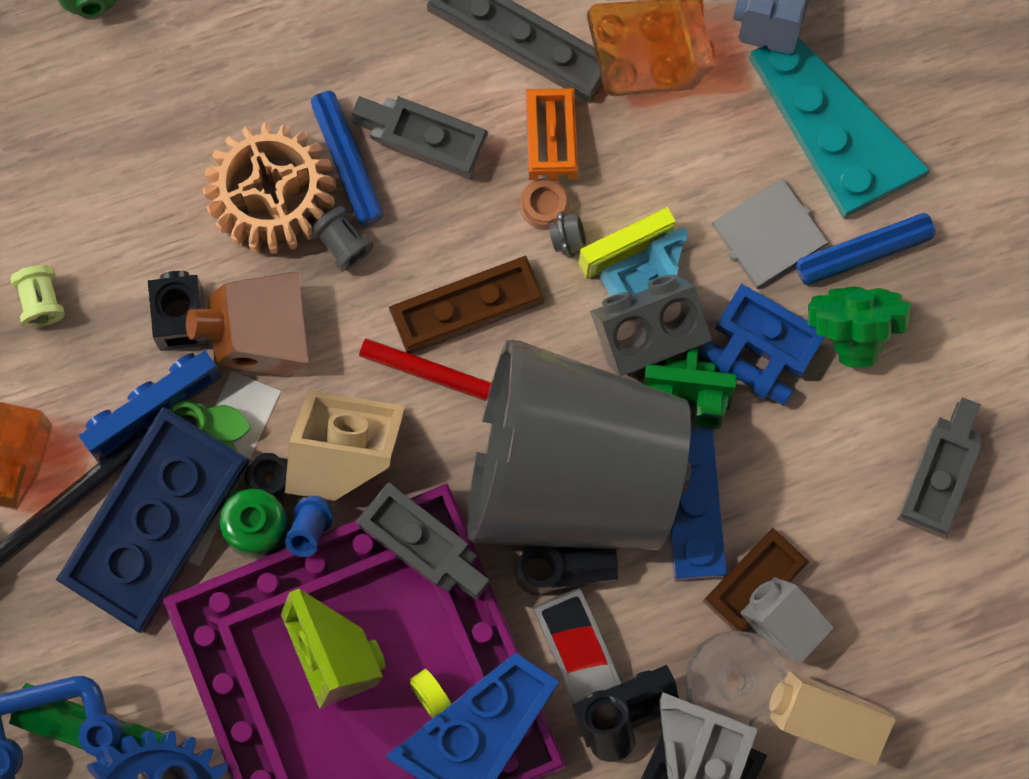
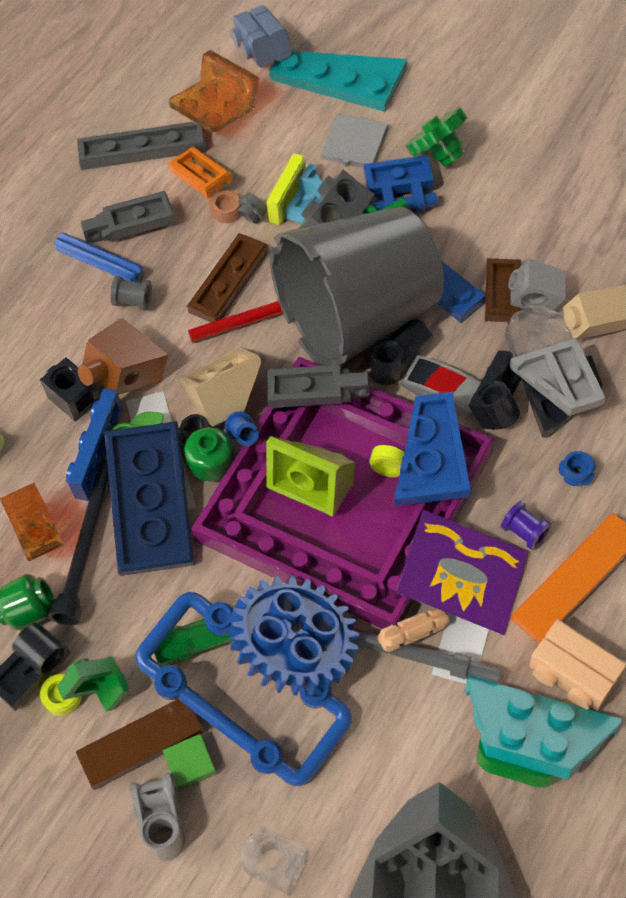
camera: 30 degrees left, 15 degrees down
(252, 195) = (71, 307): light nougat gear -> none
(865, 248) = (408, 113): blue axle -> none
(943, 471) = (545, 174): dark grey hinge -> none

